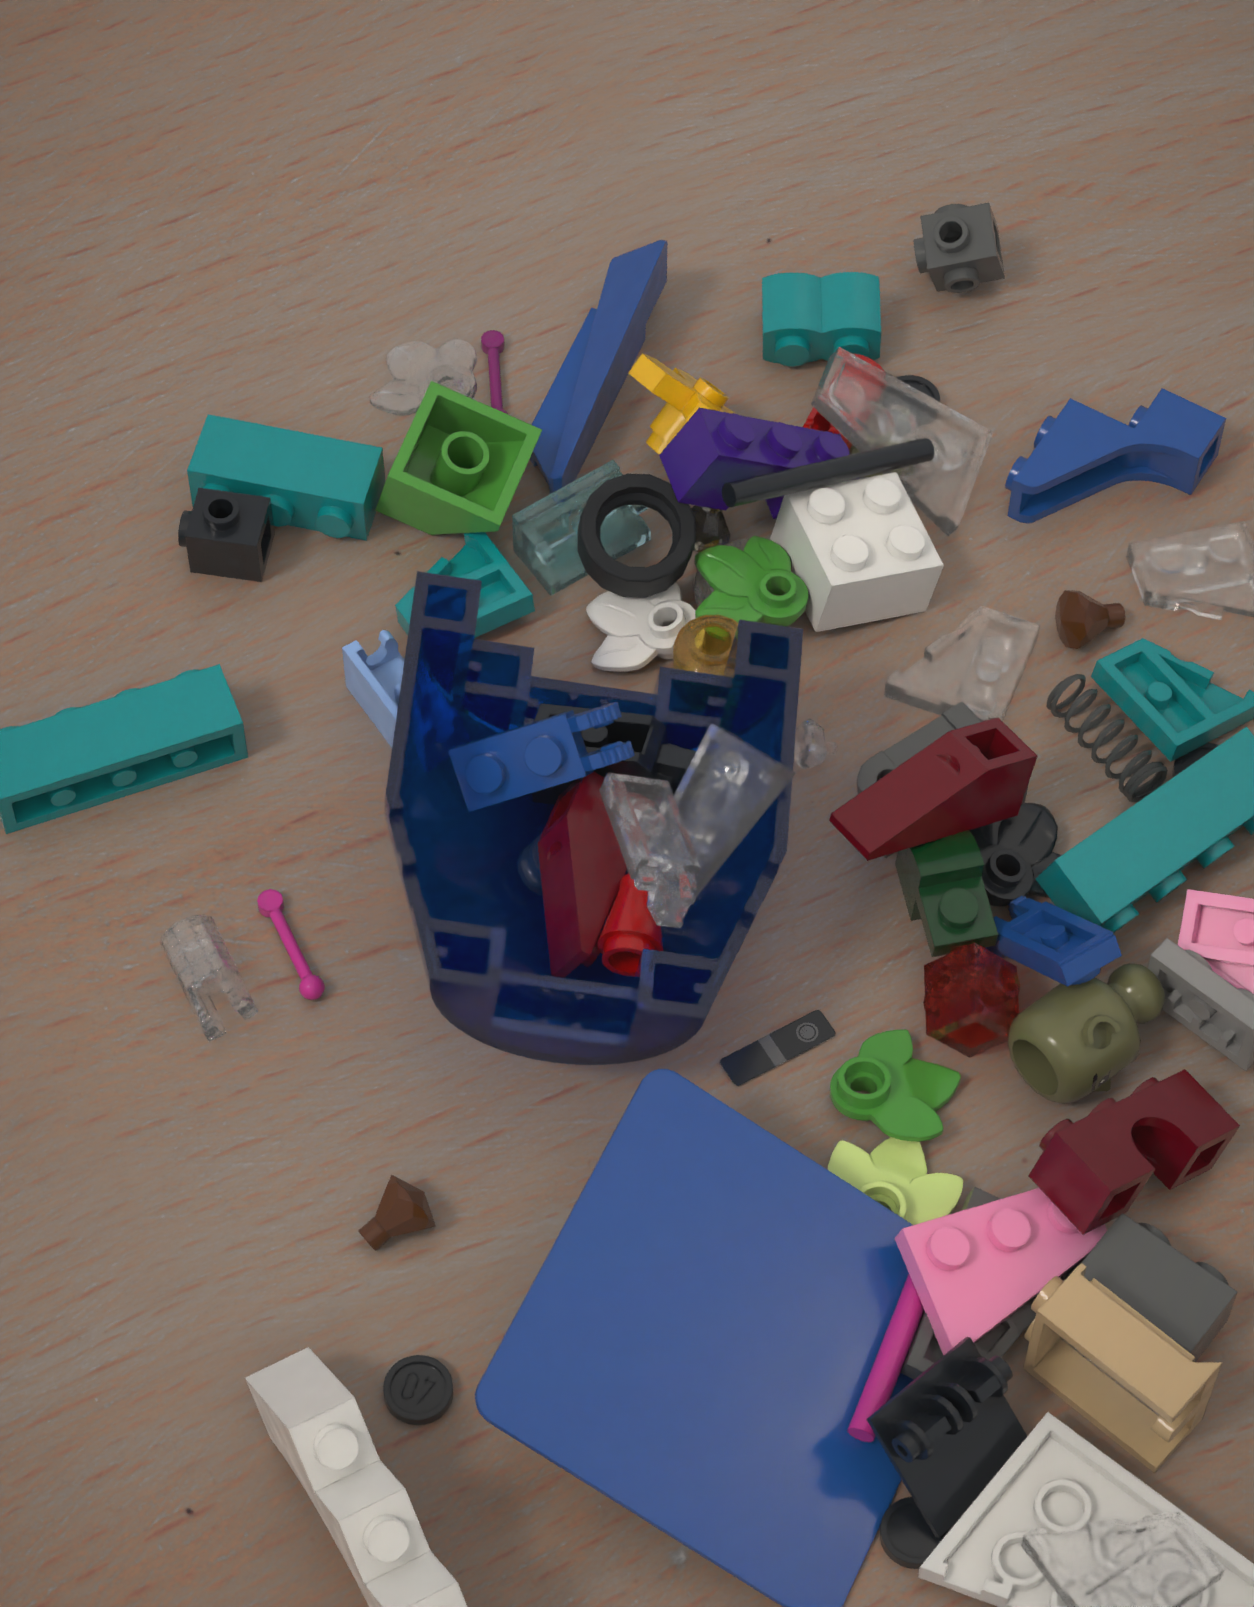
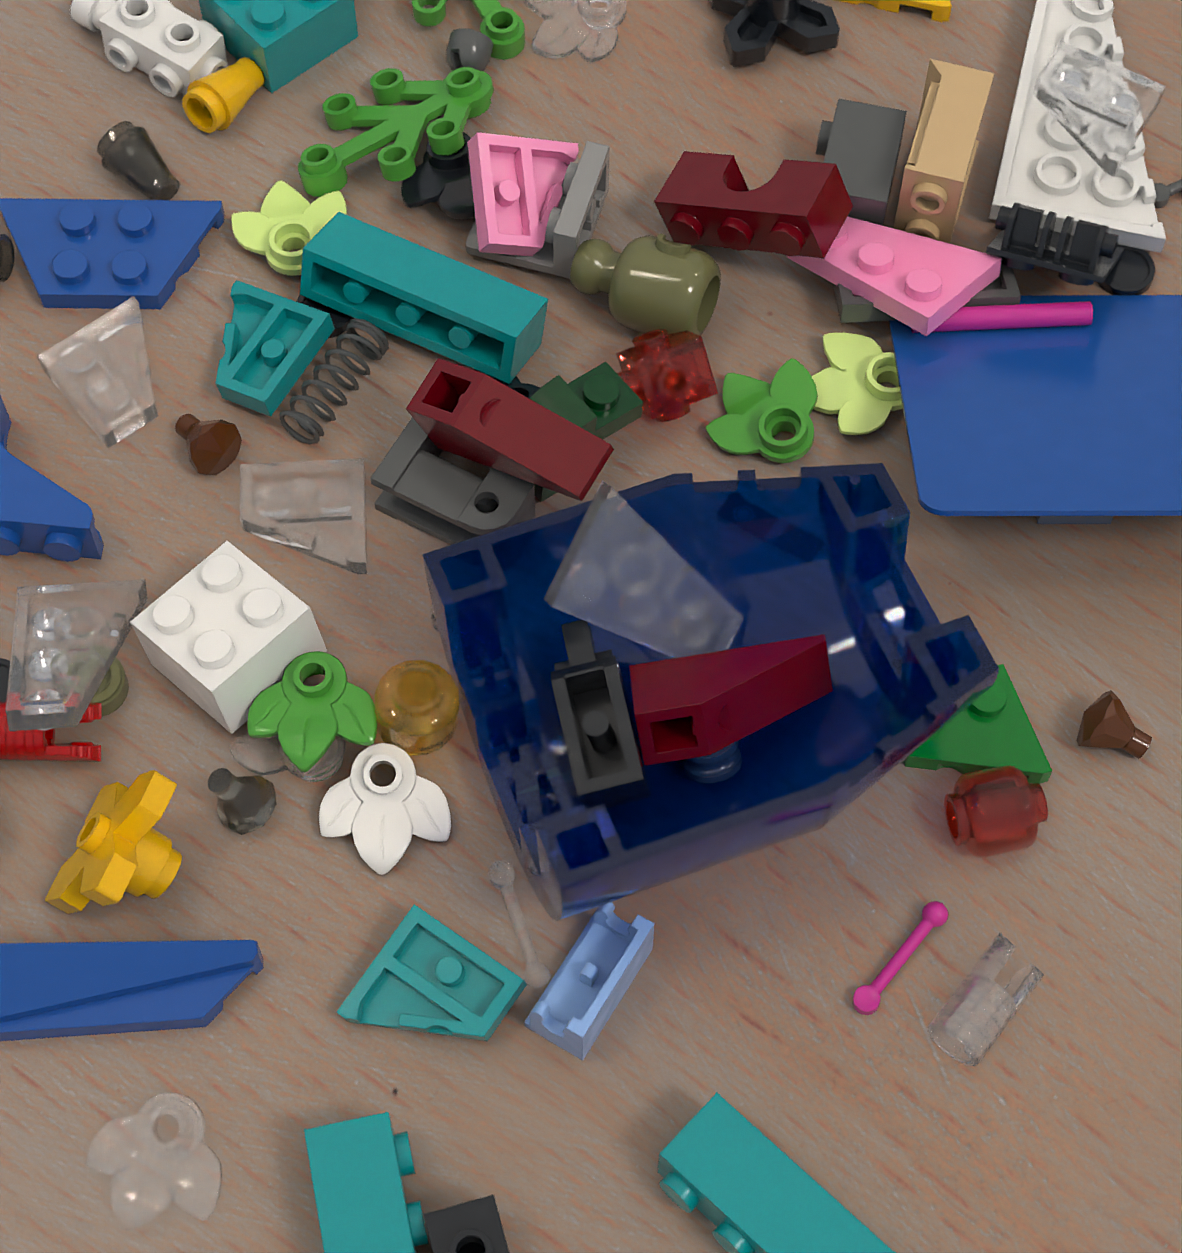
camera: 115 degrees left, 5 degrees up
(371, 1069) = (995, 811): none -> clear red head
(457, 465) = (285, 1050): bright green slope -> none
(465, 1107) = (987, 736): none -> green wing
(493, 344) = (75, 1125): magenta hinge -> none
(534, 757) = (648, 746): blue hinge -> none
(548, 530) = (298, 911): clear light blue hinge -> none
(616, 576) = (310, 780): black tyre -> none
(628, 930) = (770, 616): red cone -> none
(653, 843) = (696, 613): clear hinge -> none
(733, 447) = (187, 732): dark purple arch -> none
(827, 472) = (175, 661): black bar -> none
(1054, 941) = (595, 311): blue hinge -> none

